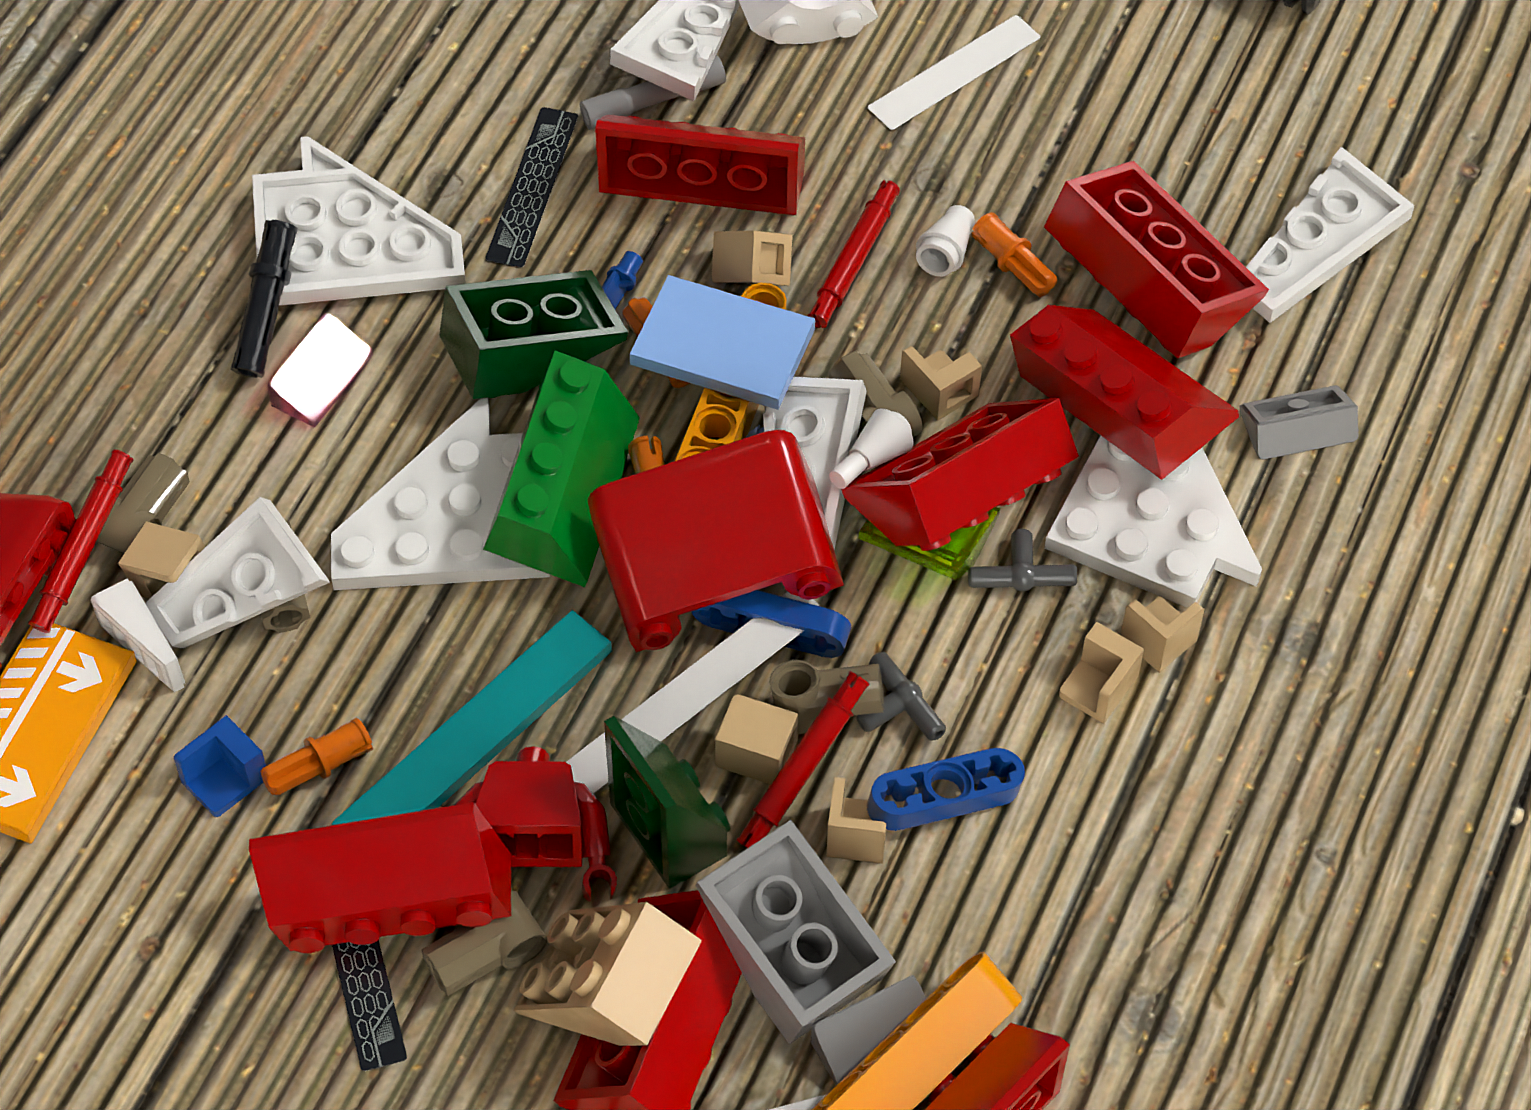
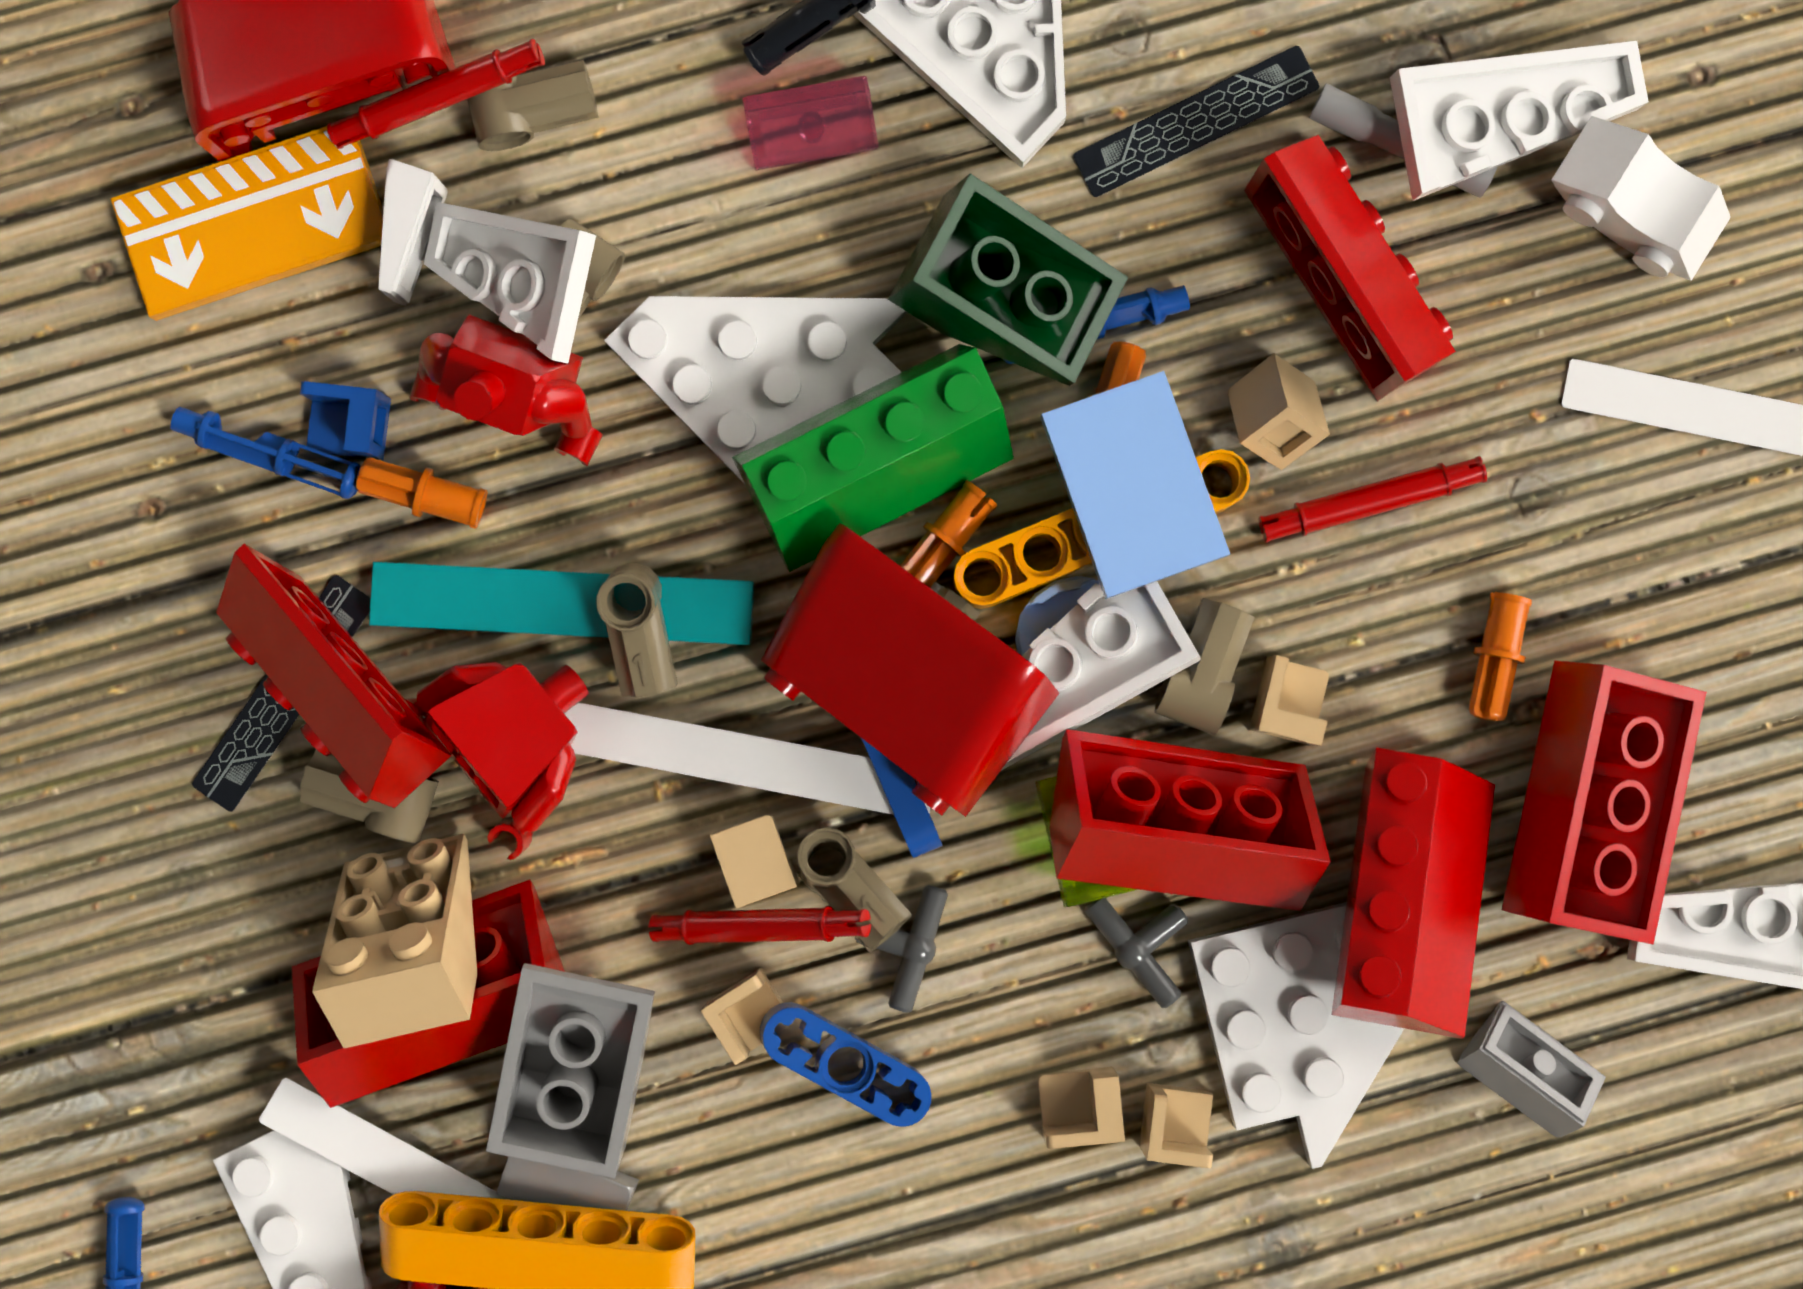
camera: 55 degrees right, 30 degrees up
(158, 557) = (485, 178): tan panel -> none
(193, 833) = (267, 452): none -> blue piece
(298, 628) = (507, 384): none -> red torso
(542, 689) = (639, 636): none -> dark tan piece
(662, 804) = (607, 849): dark green slope -> none
(880, 441) = (1146, 725): white cone -> none
(945, 243) = (1456, 579): white cone -> none

